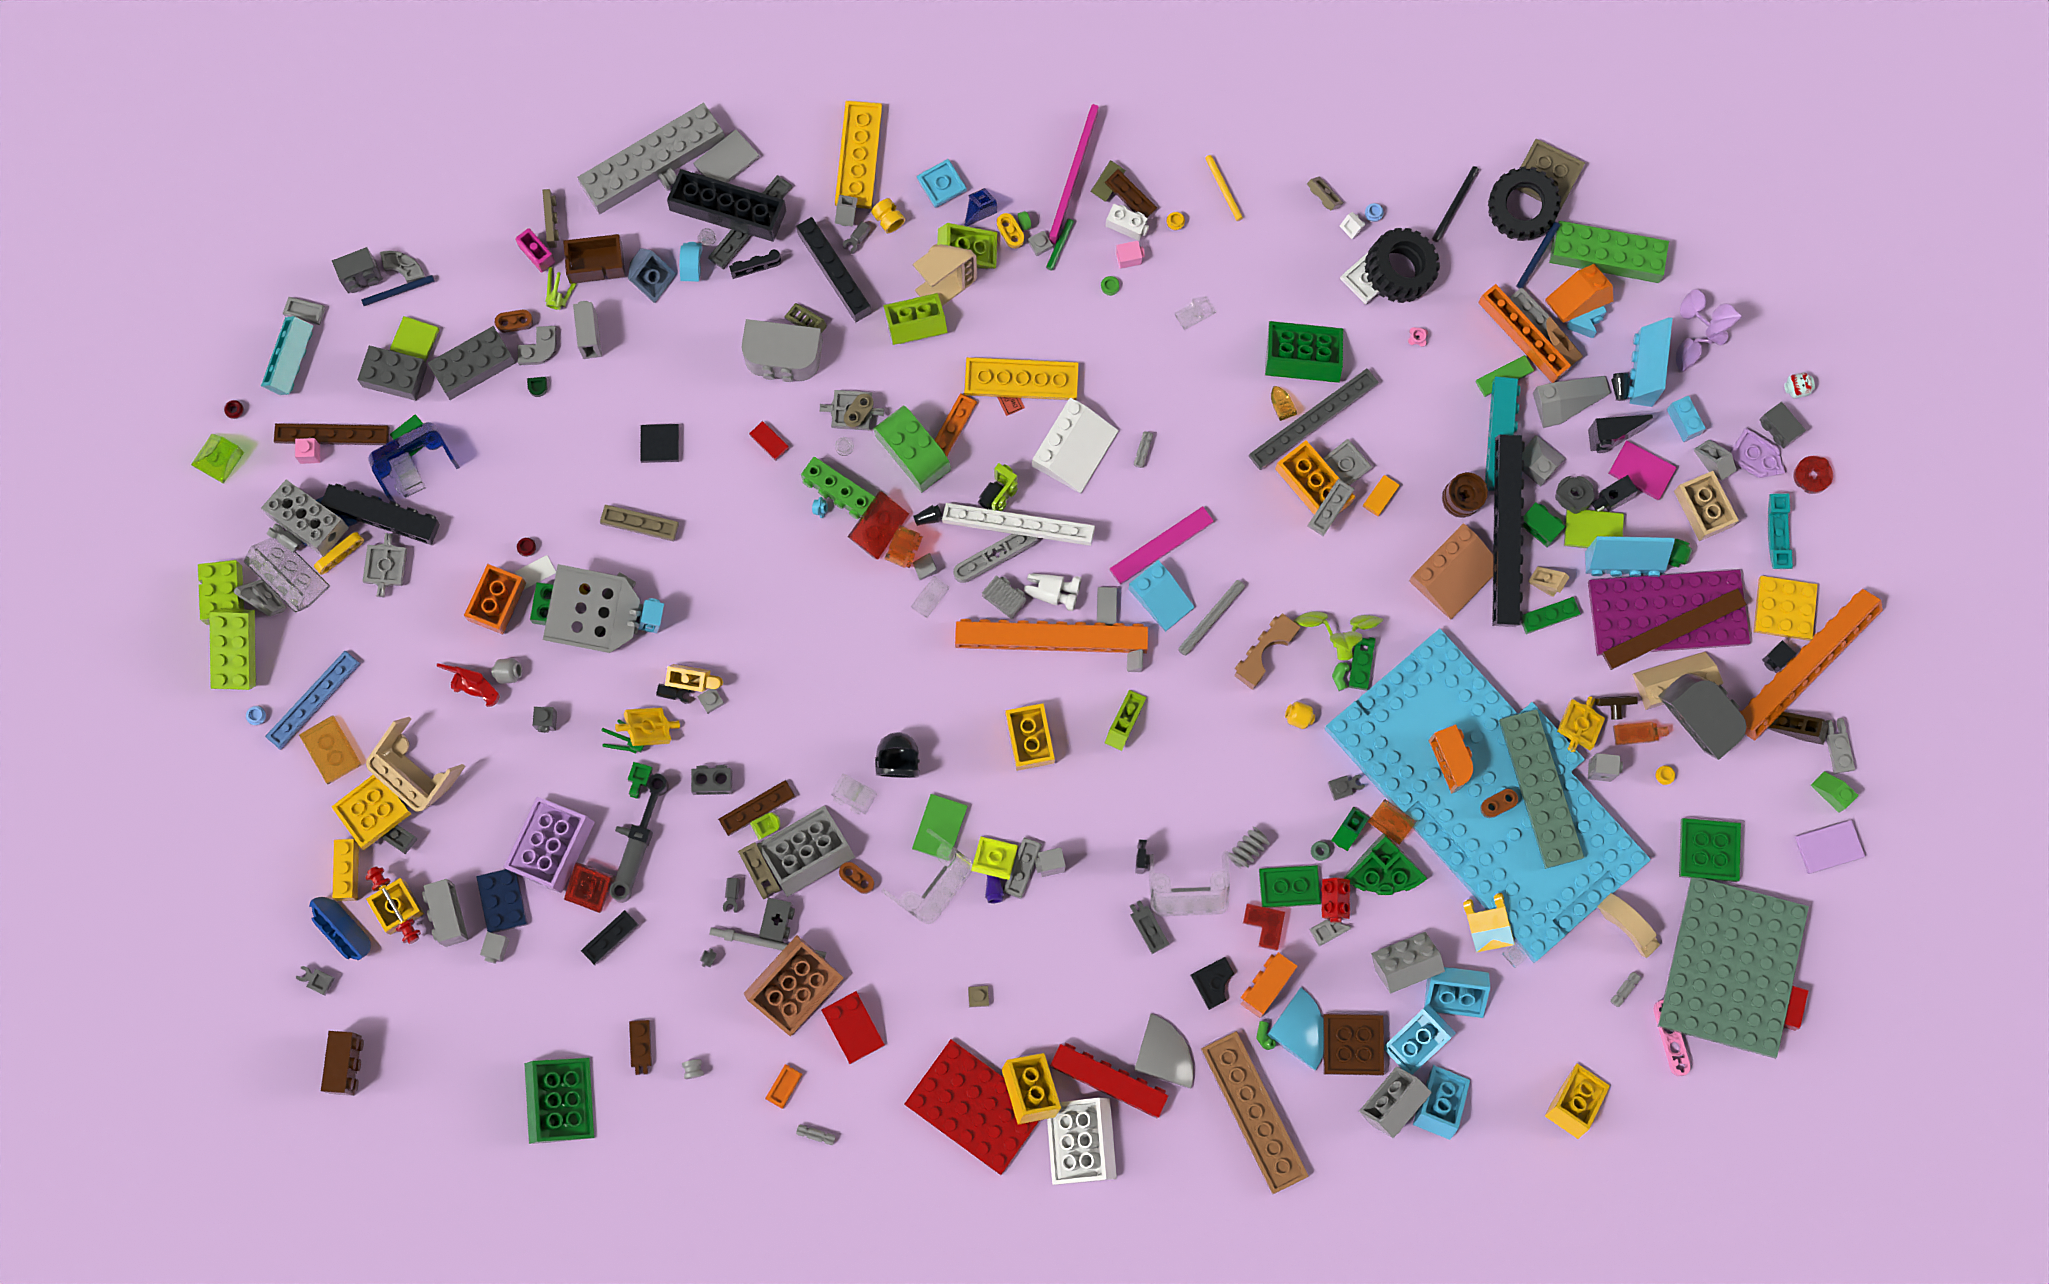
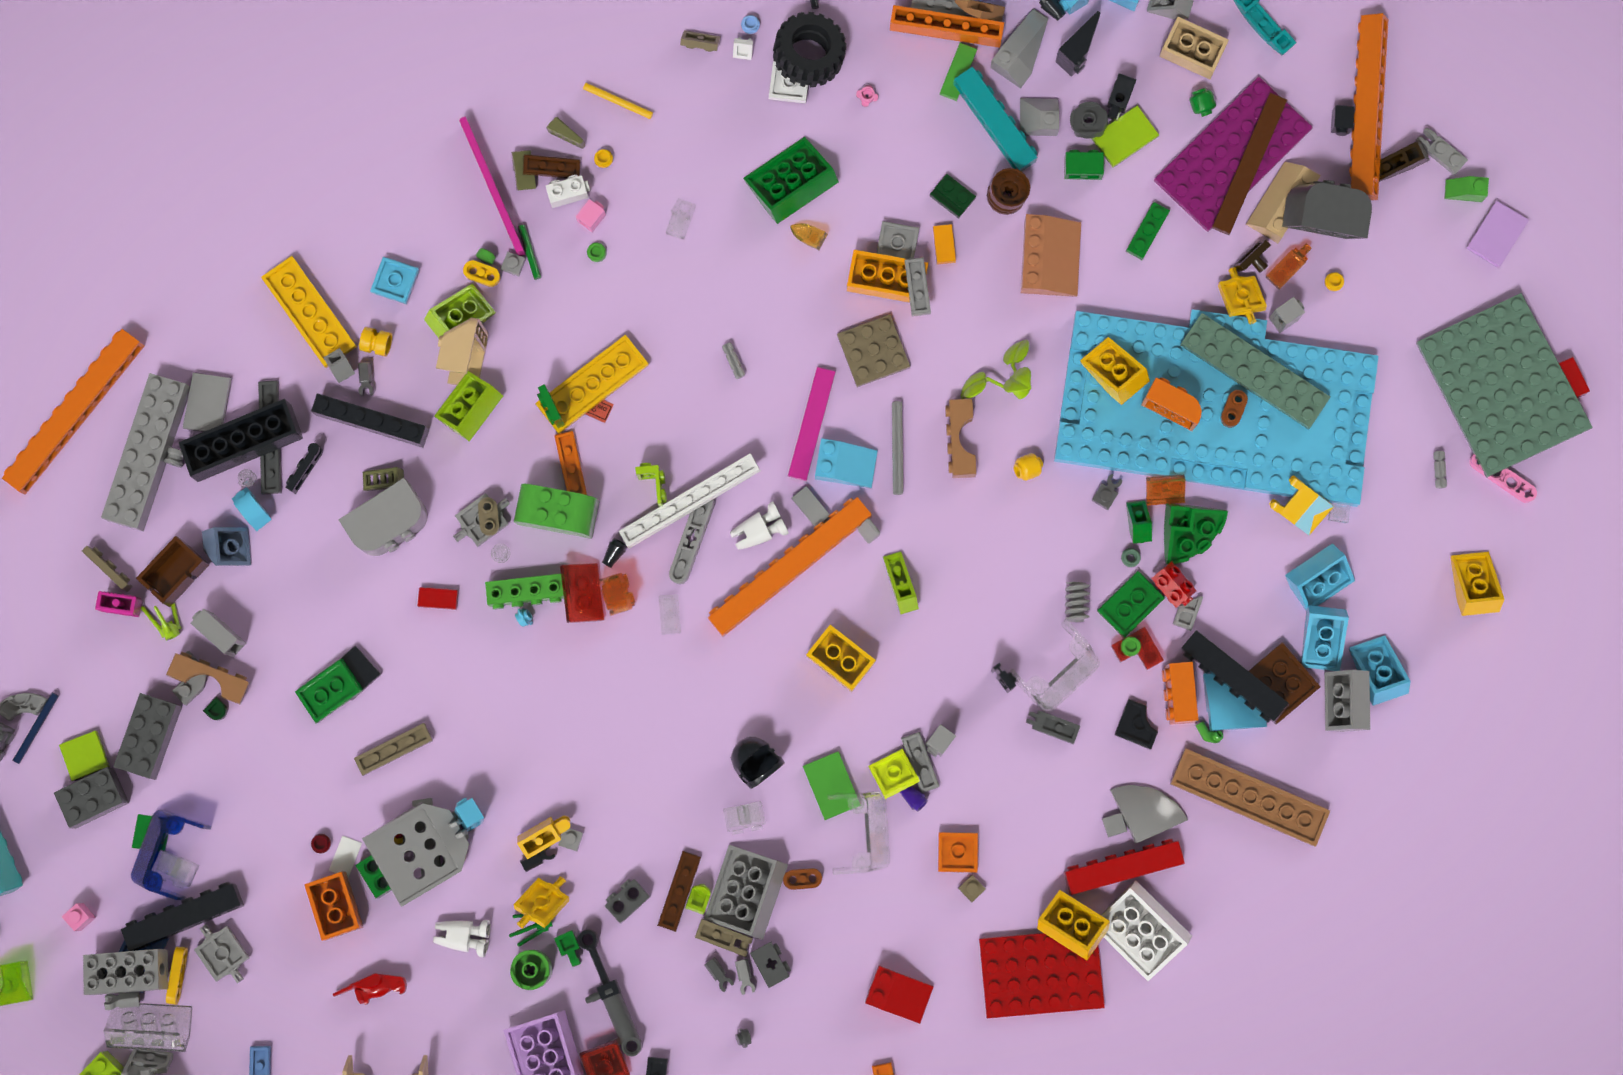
camera: 35 degrees left, 5 degrees up
(332, 434) = (85, 886): reddish brown tile -> none
(507, 671) = (392, 953): light grey head -> none
(514, 320) = (149, 672): dark orange plate -> none
(540, 335) = (184, 668): none -> medium nougat arch
(544, 719) = (455, 965): dark grey brick -> none
(565, 699) = (459, 936): none -> white piece
(601, 779) = (542, 970): none -> bright green brick
(625, 86) = (73, 411): none -> orange brick
(630, 440) = (329, 691): none -> green tile
(730, 935) = (745, 1005): light grey bar -> none
(750, 912) = (744, 974): none -> light grey bar
(793, 985) = (826, 1003): nougat slope -> none
(925, 567) = (645, 594): dark grey slope -> none
(973, 370) = (547, 401): none -> green plate
(980, 206) = (440, 273): clear blue slope -> none
(989, 494) = (648, 495): black brick -> none
(991, 959) = (958, 852): none -> orange plate
(1004, 596) = (726, 566): light grey brick -> none
(1074, 446) = (679, 402): white slope -> none
(1130, 1043) = (1114, 825): none -> light grey tile
(1161, 174) = (562, 131): none -> olive slope
(1256, 530) = (873, 350): none -> dark tan plate
(1260, 916) = (1130, 646): none -> bright green tile
(1313, 419) = (843, 227): dark grey plate -> none
(1322, 1008) = (1235, 676): none -> black brick
(1338, 674) = (1030, 411): bright green arm -> none
(1361, 664) = (1041, 389): green plate -> none
(1407, 962) = (1268, 587): light grey brick -> none
(1419, 465) = (952, 196): none -> dark green plate
(1430, 697) = (1115, 370): none -> yellow slope
(1507, 530) = (1064, 192): black brick -> none
(1548, 580) = (1125, 204): tan slope -> none
(1628, 556) = (1170, 137): medium azure slope -> none
(1631, 923) = (1403, 416): tan arch -> none
(1644, 469) = (1122, 57): dark pink tile -> none
(1710, 850) = (1414, 311): green plate -> none
(1785, 608) = (1315, 78): yellow plate -> none

